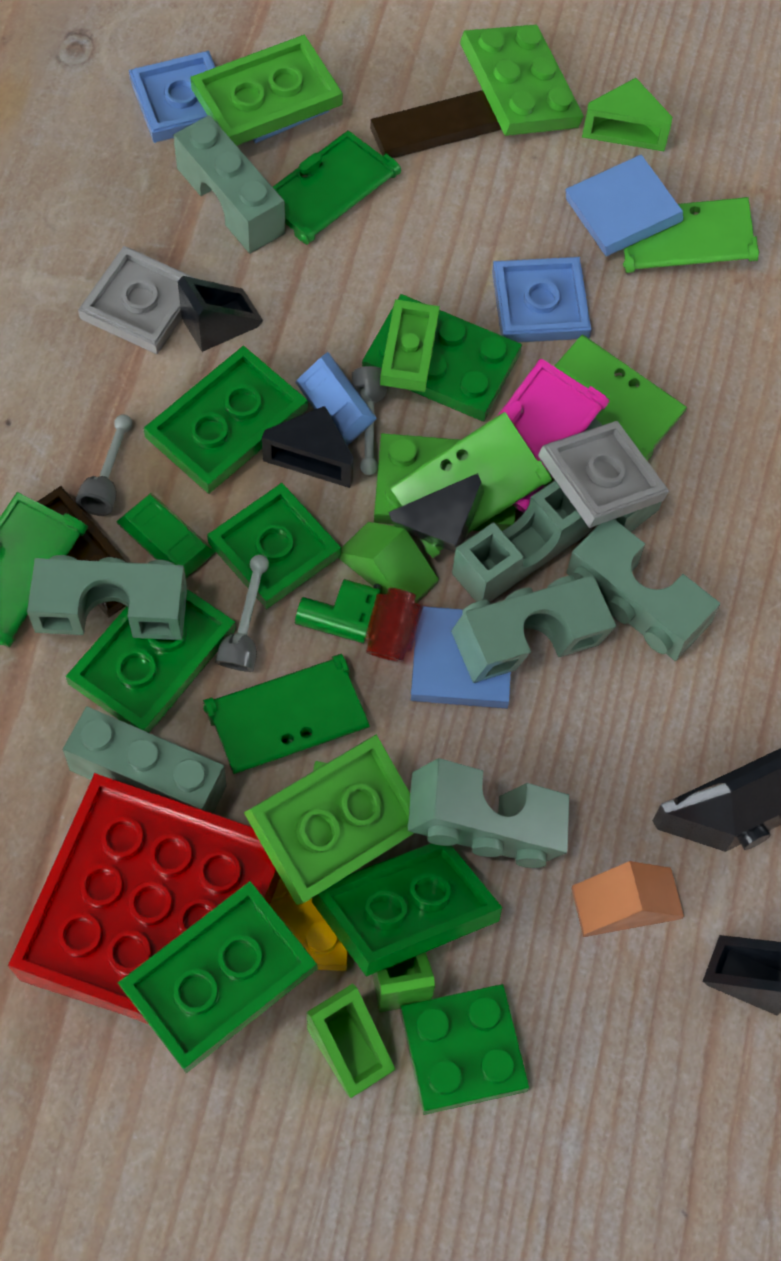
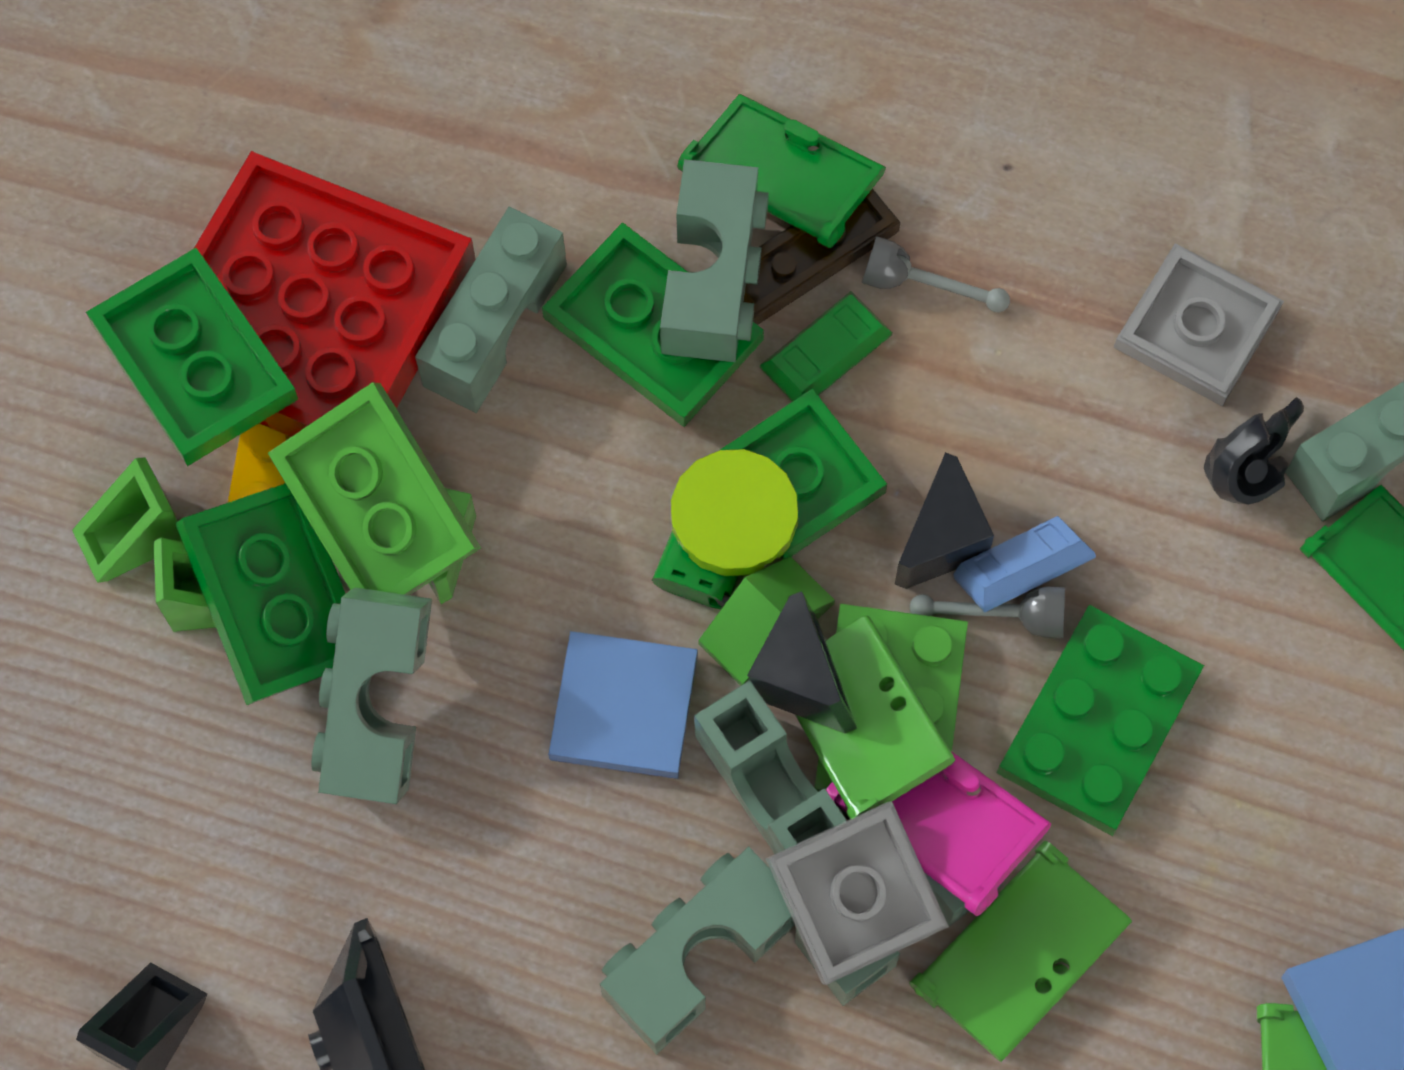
camera: 100 degrees right, 5 degrees up
(215, 311) = (1169, 413): black slope -> none
(223, 418) = (999, 420): green plate -> none
(238, 649) = (646, 422): hinge -> none
(246, 267) = (1240, 462): none -> black piece
(262, 716) = (569, 503): green door -> none
(315, 577) = (734, 512): none -> lime tile
(393, 625) = (664, 611): clear red brick -> none
(409, 345) = (1093, 656): bright green plate -> none
(463, 1049) = (106, 662): green plate -> none
(541, 299) = (1203, 873): medium blue tile -> none
(566, 611) = (630, 726): sand green arch -> none
(627, 898) = (264, 882): nougat slope -> none

